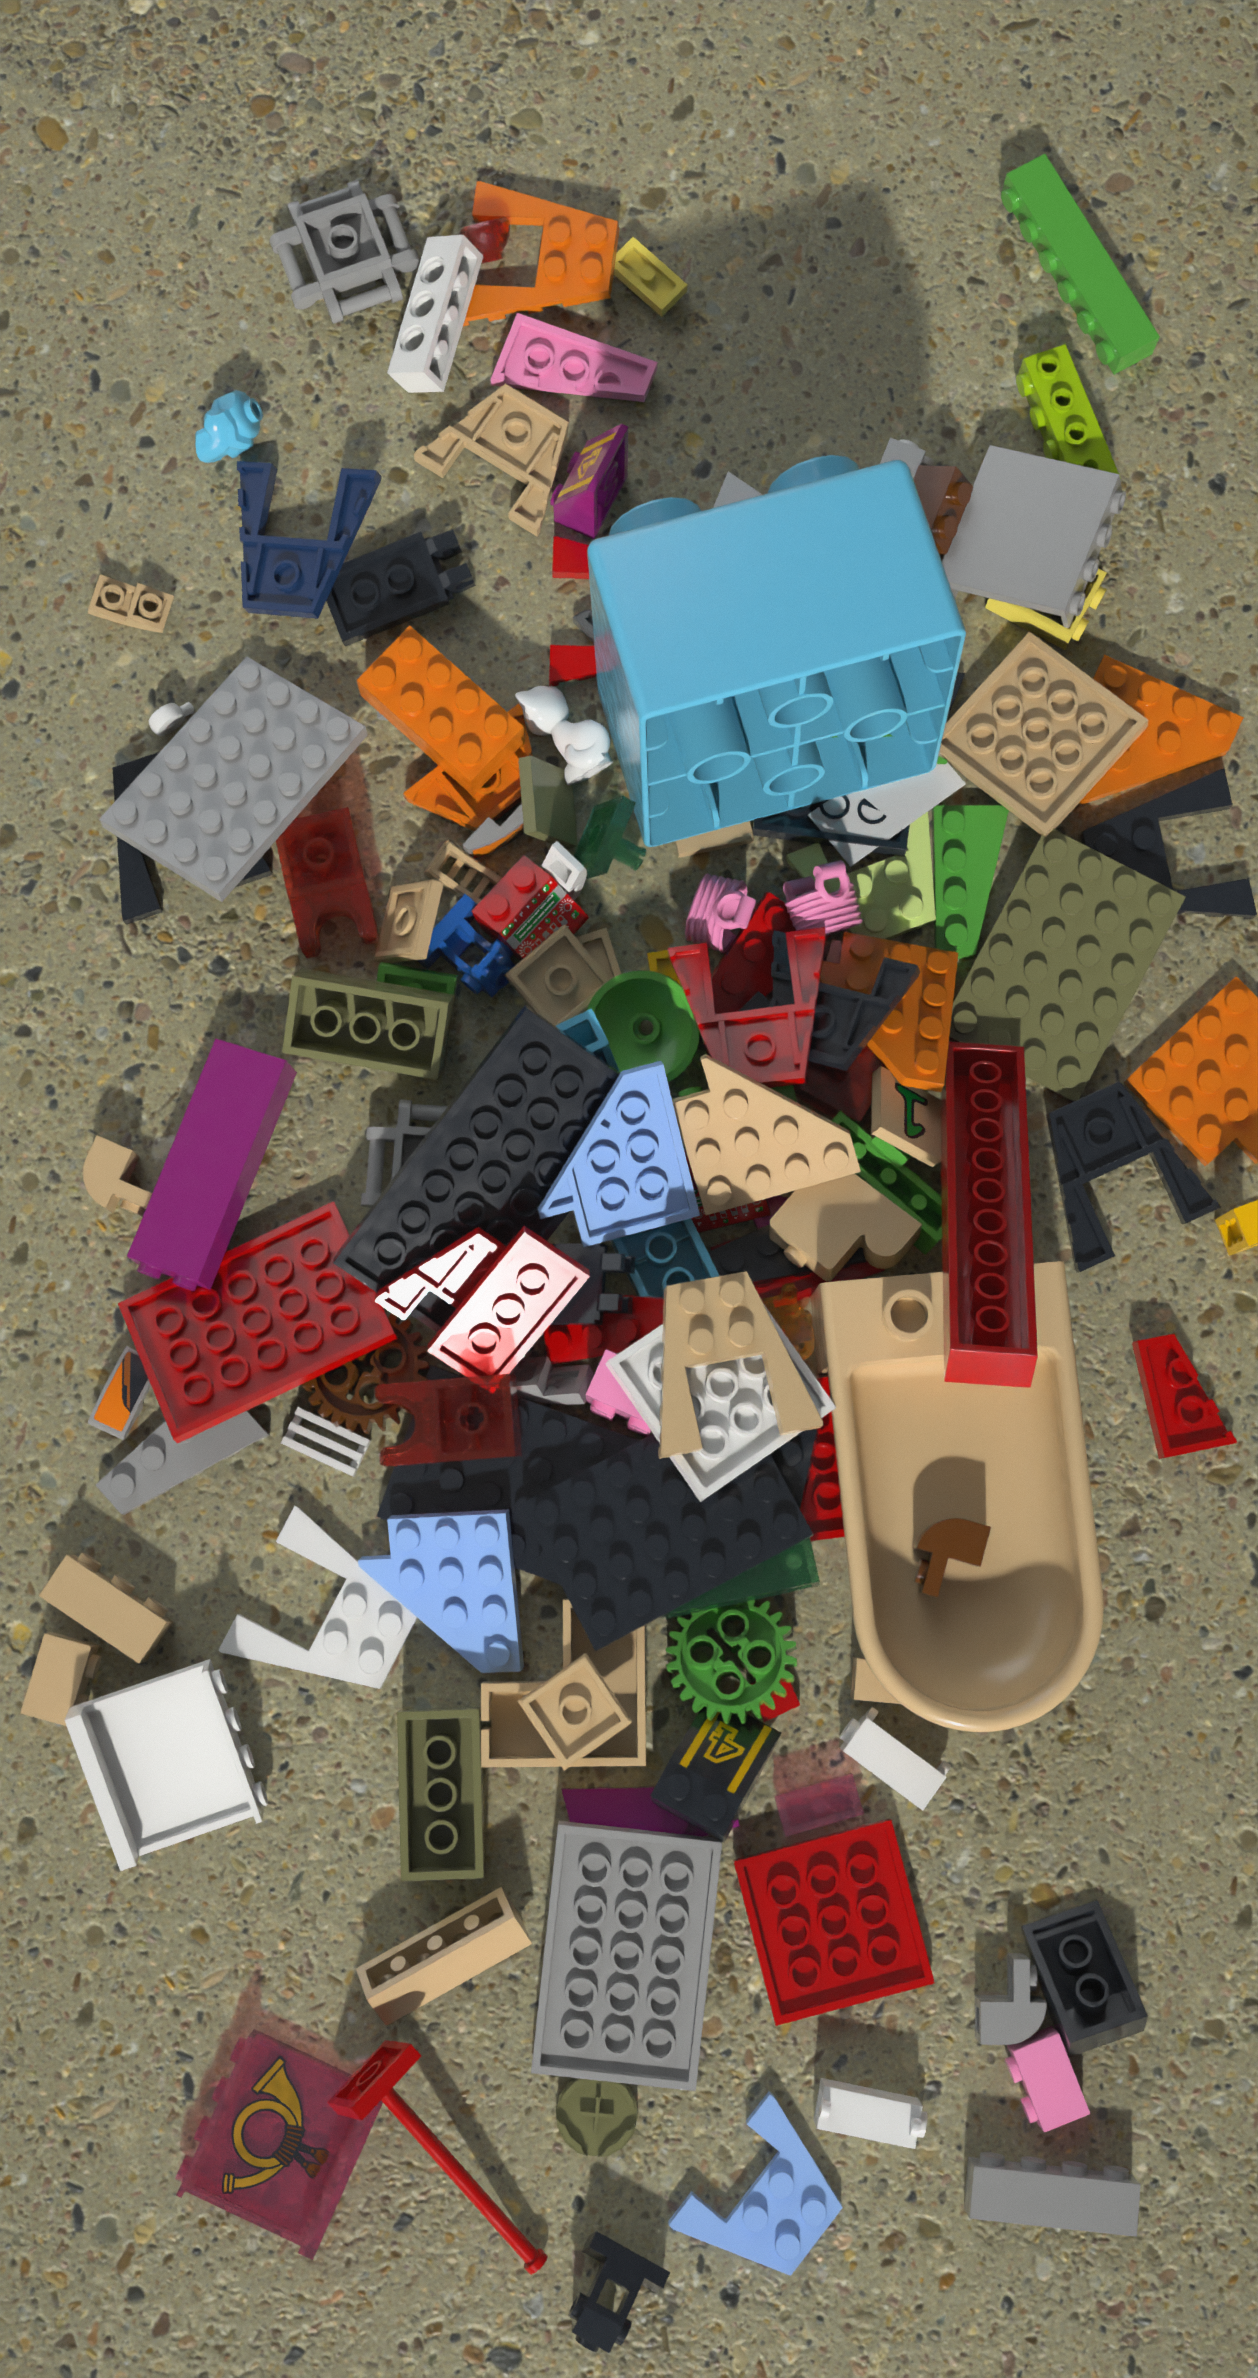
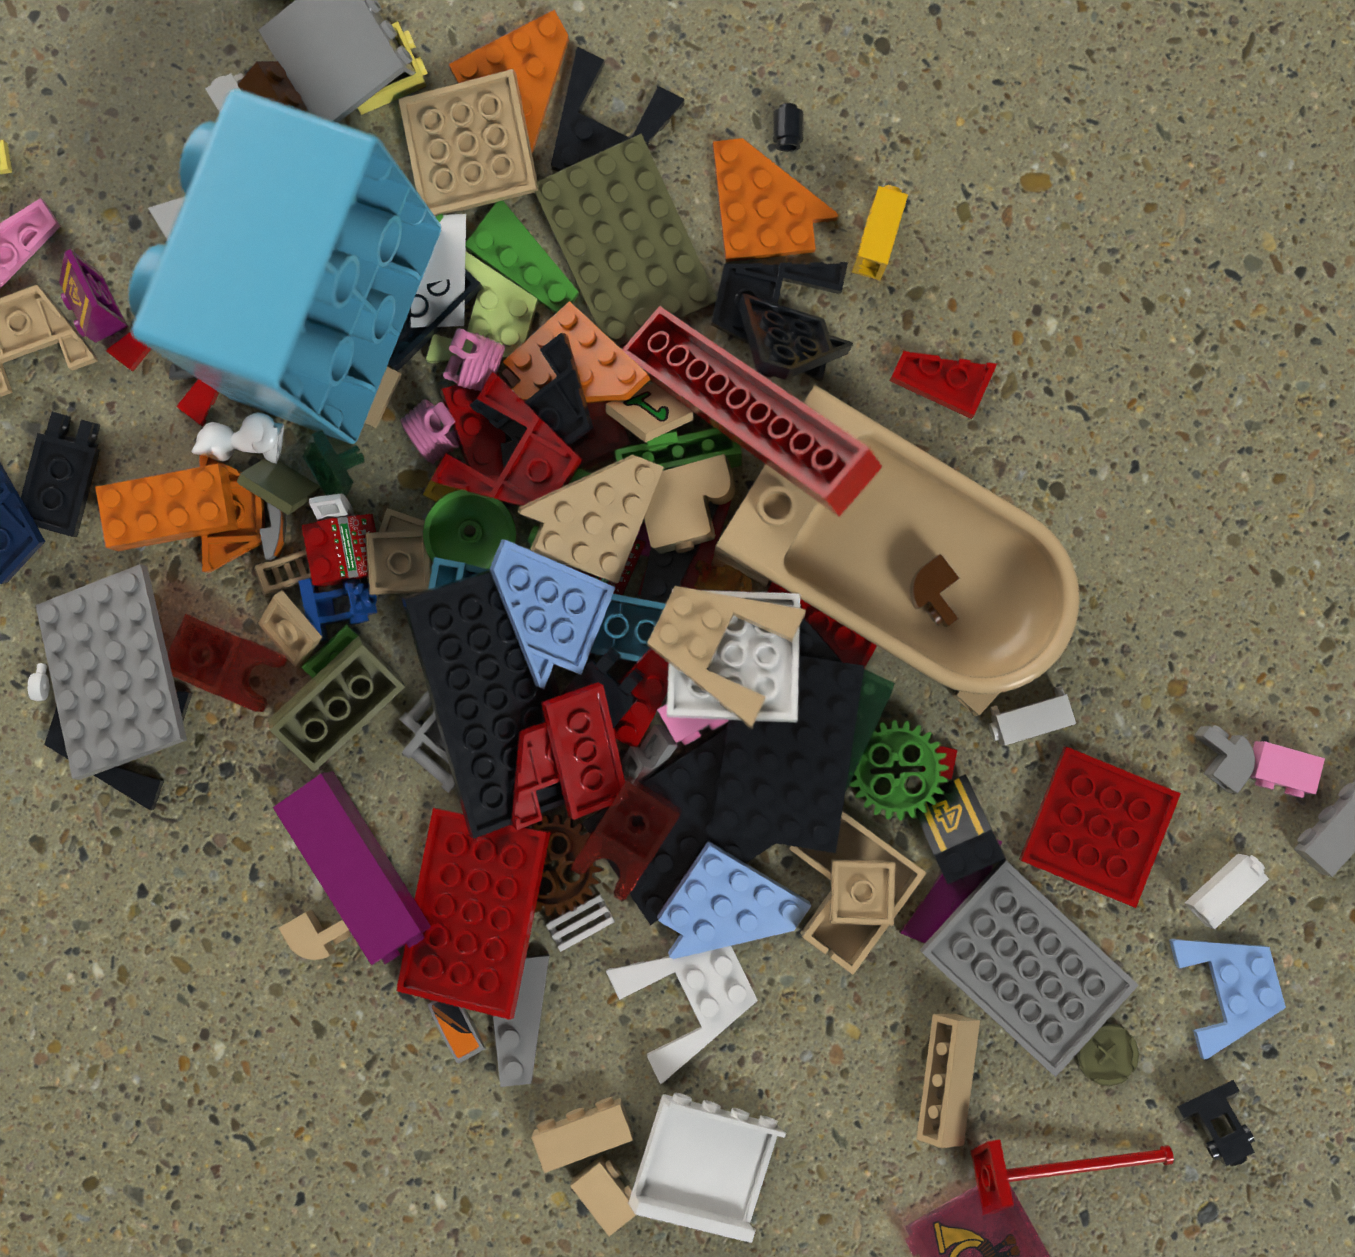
camera: 50 degrees left, 5 degrees up
(441, 1794) = (850, 1010): olive brick -> none
(818, 1804) = (1024, 783): clear pink plate -> none
(1084, 1979) = (1243, 701): black slope -> none
(1090, 1201) = (786, 339): none -> black wing

